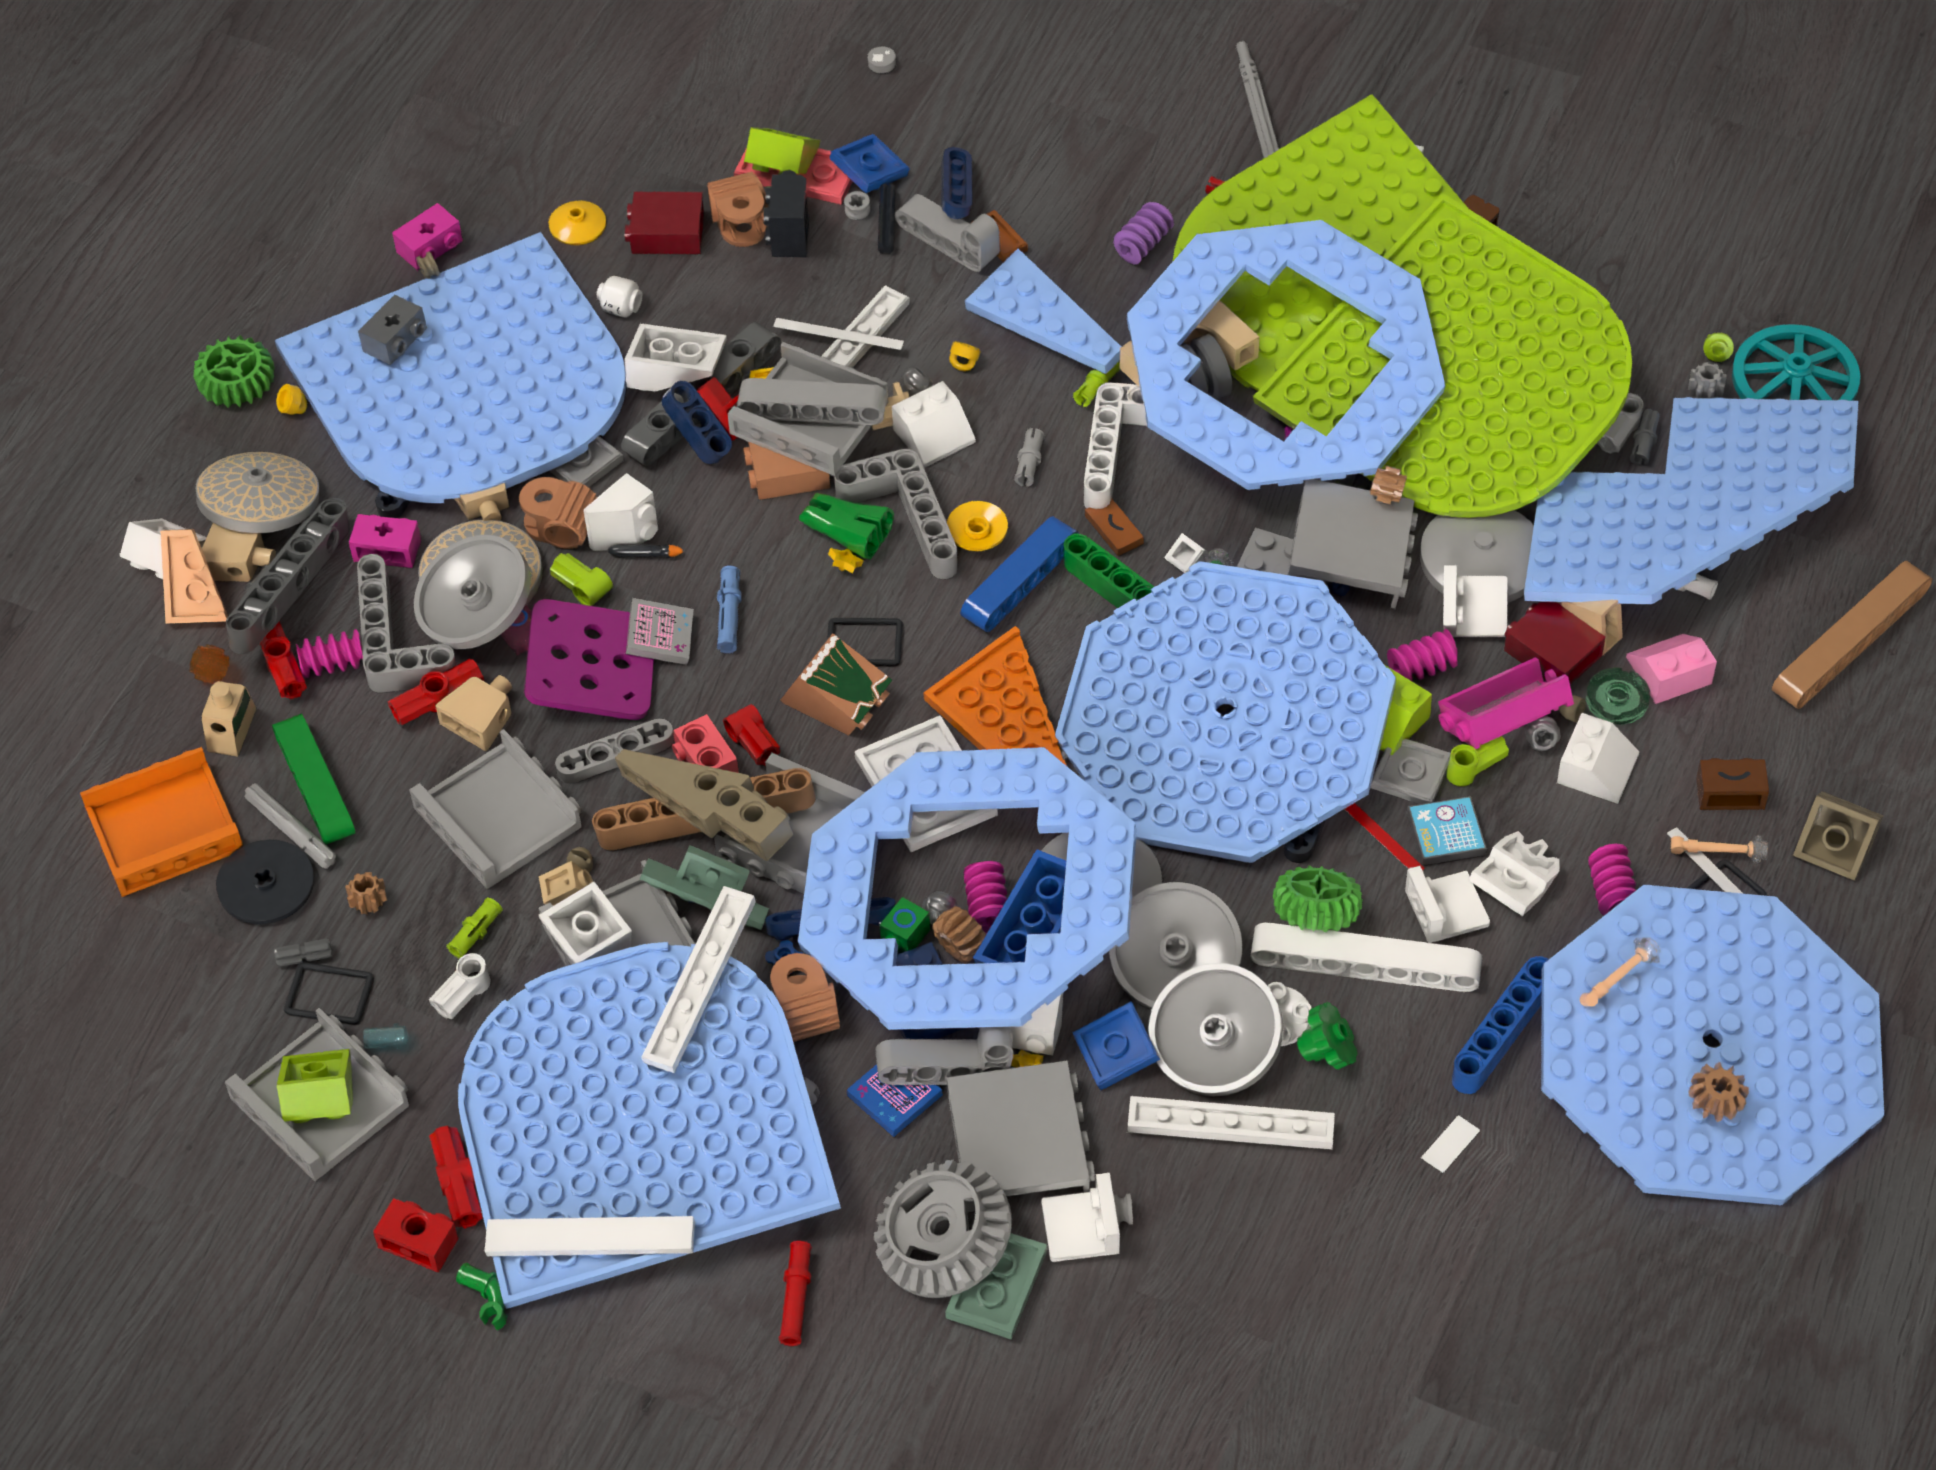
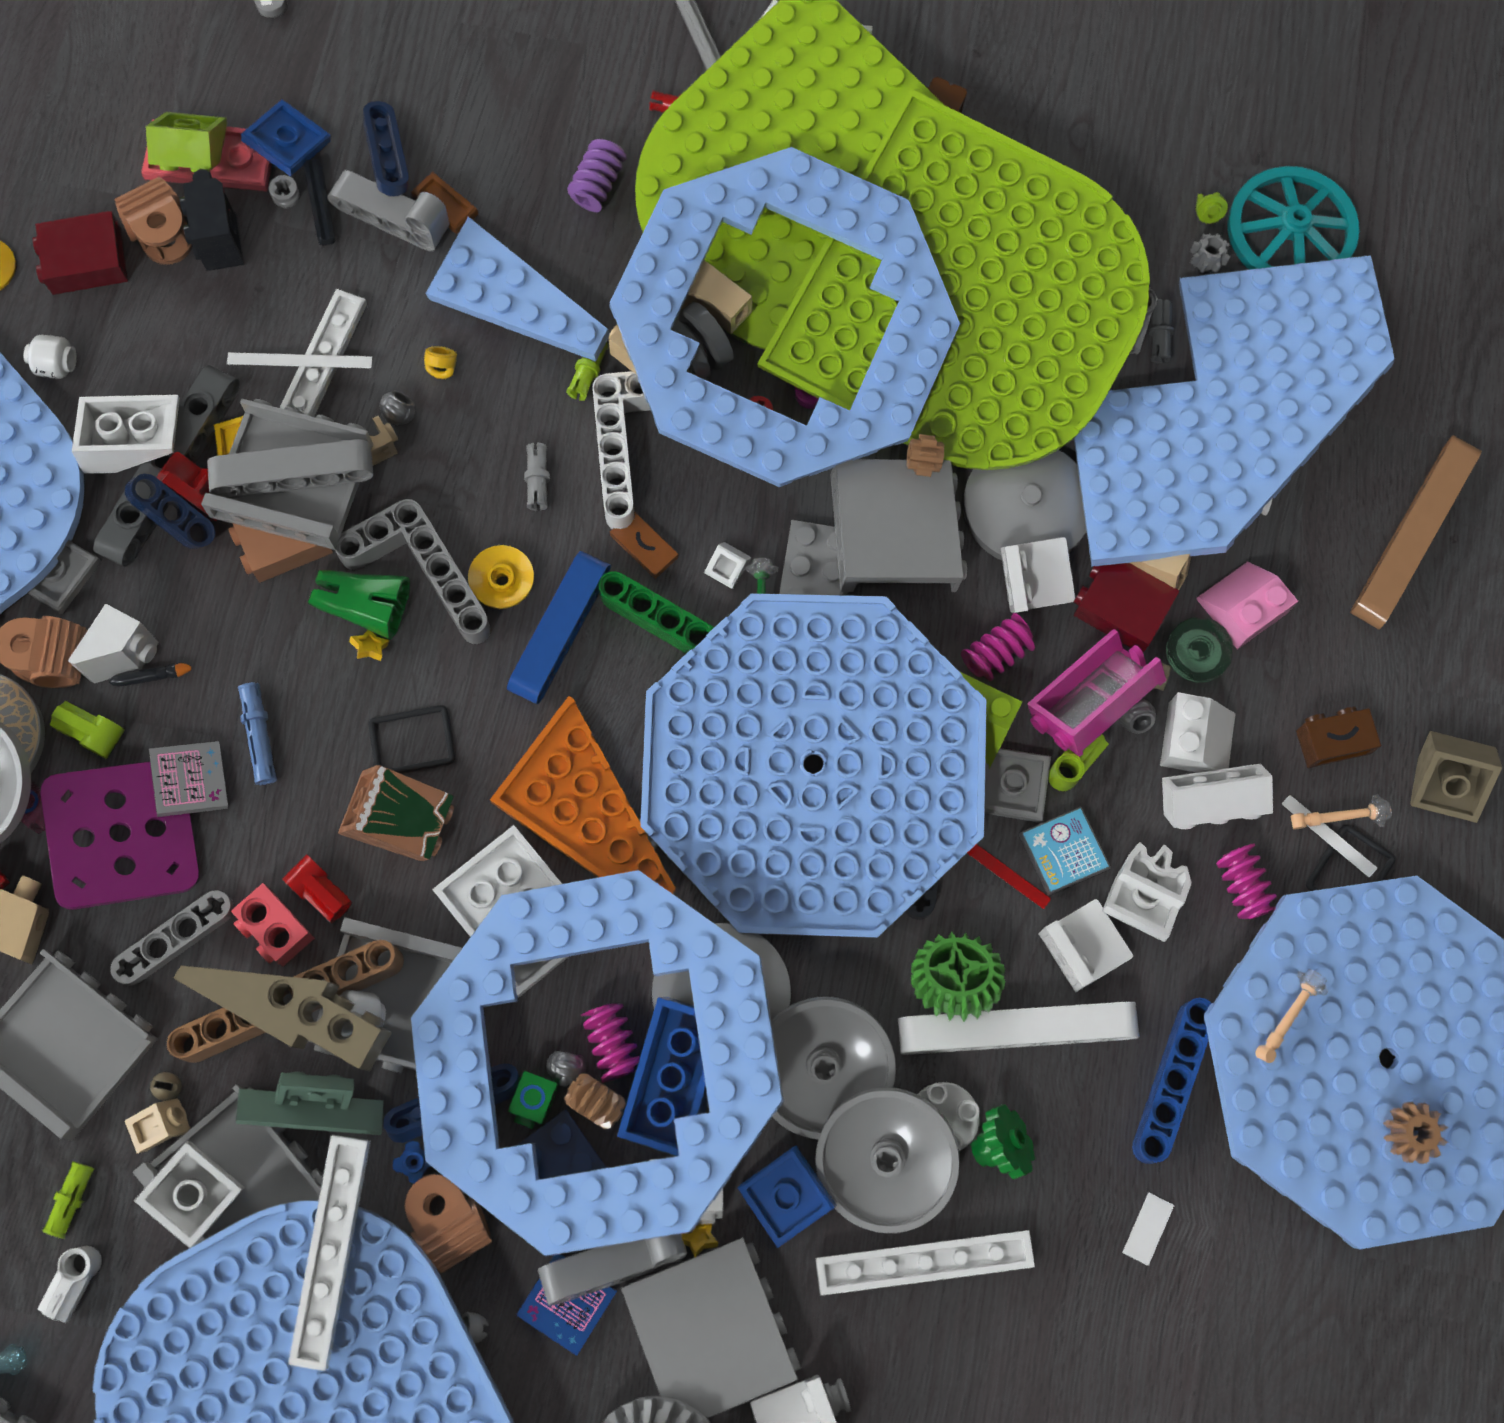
camera: 20 degrees left, 20 degrees up
(932, 424) = (426, 457): white slope -> none
(1601, 807) = (1217, 796): none -> white brick

